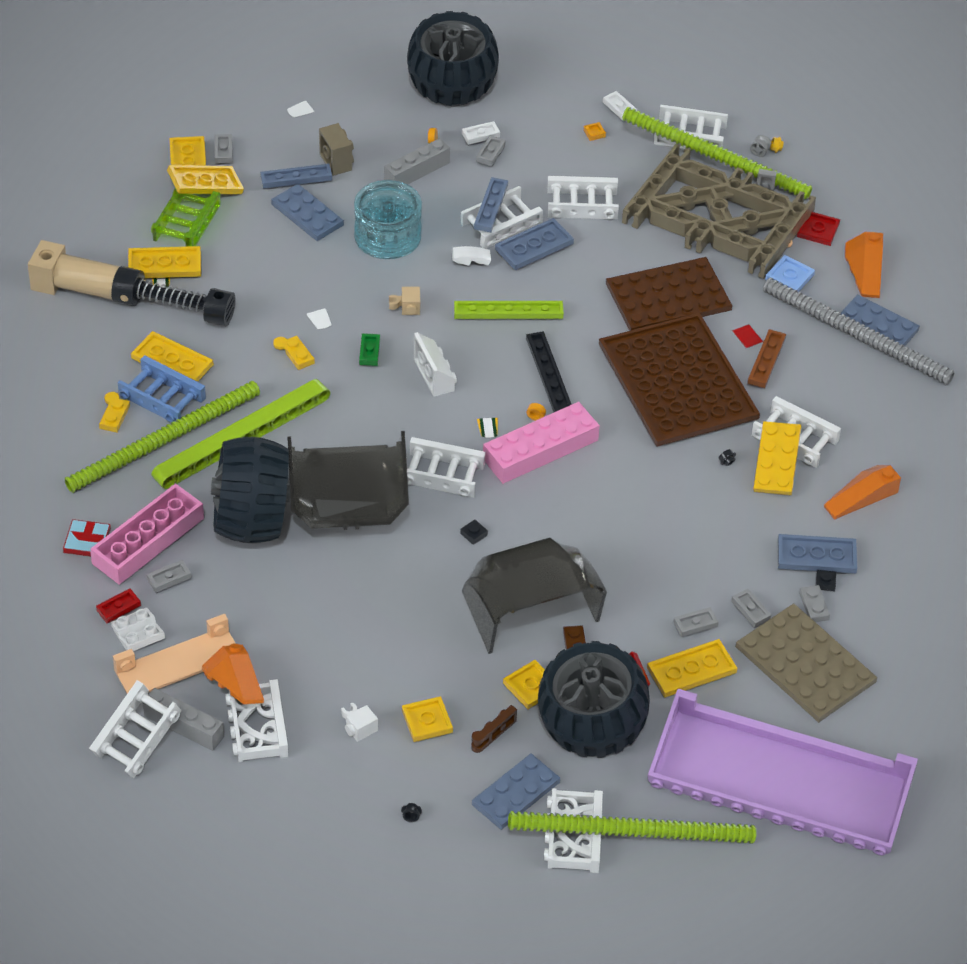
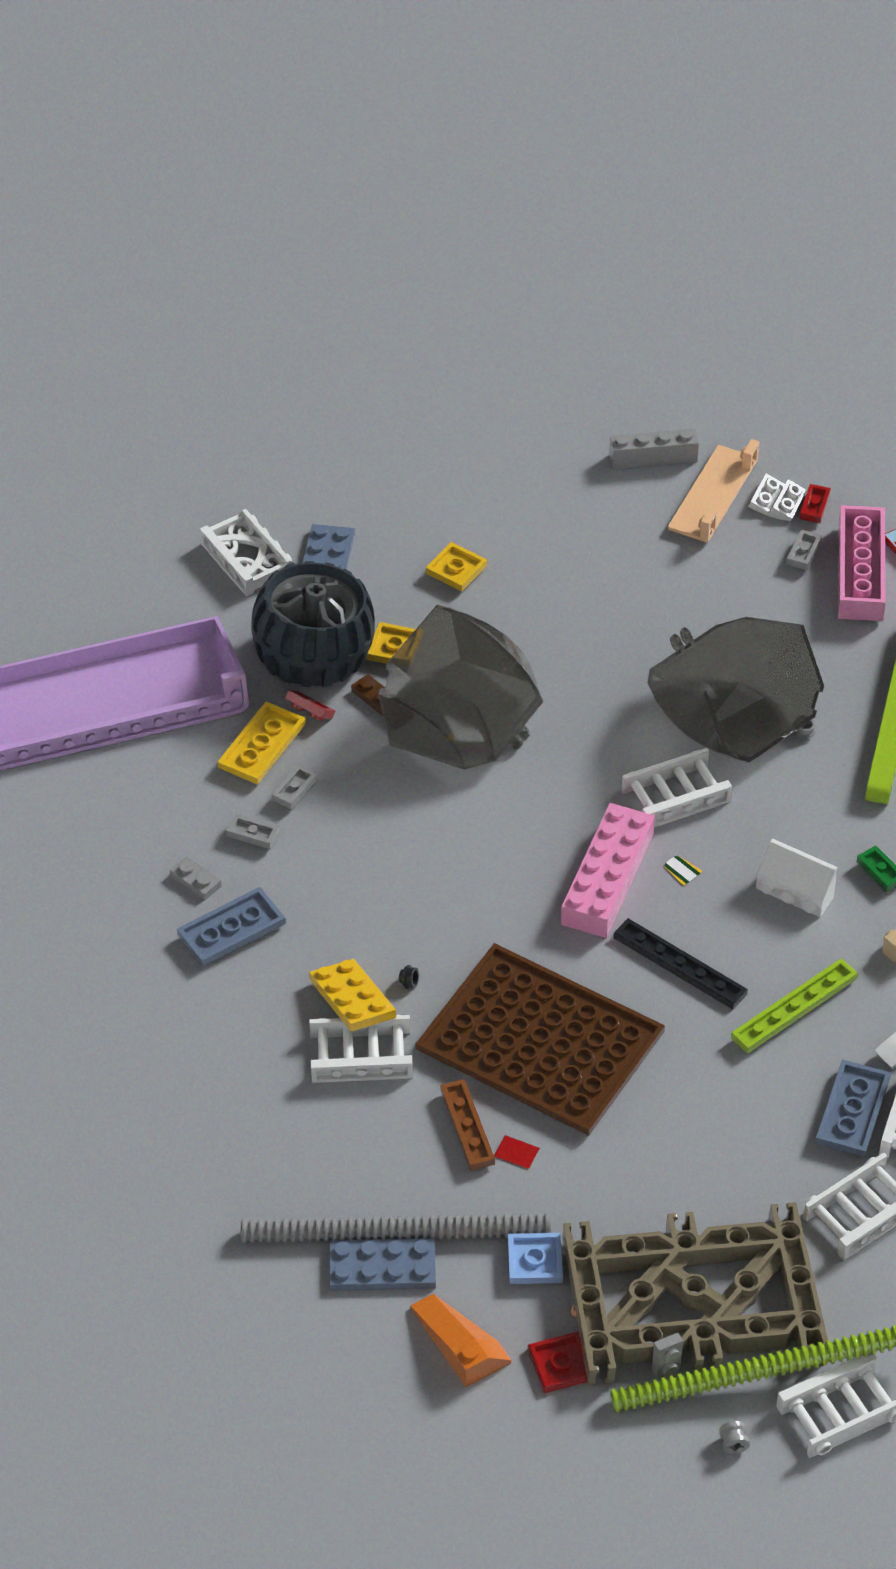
camera: 145 degrees right, 0 degrees up
(125, 712) = (676, 407): white fence -> none
(234, 670) = (647, 491): orange wedge -> none
(251, 489) = (804, 587): black wheel -> none
(276, 739) = (589, 500): white fence -> none
(360, 722) = (509, 529): white brick -> none
(411, 812) = (396, 493): black plate -> none
(474, 532) = (585, 752): black plate -> none
(493, 729) = (391, 587): reddish brown plate -> none
(536, 411) = (646, 902): light orange tile -> none
(632, 827) = (190, 563): lime piece -> none
(668, 293) = (648, 1146): reddish brown plate -> none
(776, 144) = (718, 1458): yellow plate -> none
(806, 662) = (159, 816): dark tan plate -> none
(826, 580) = (201, 906): black plate -> none
(864, 490) = (236, 1031): orange wedge -> none

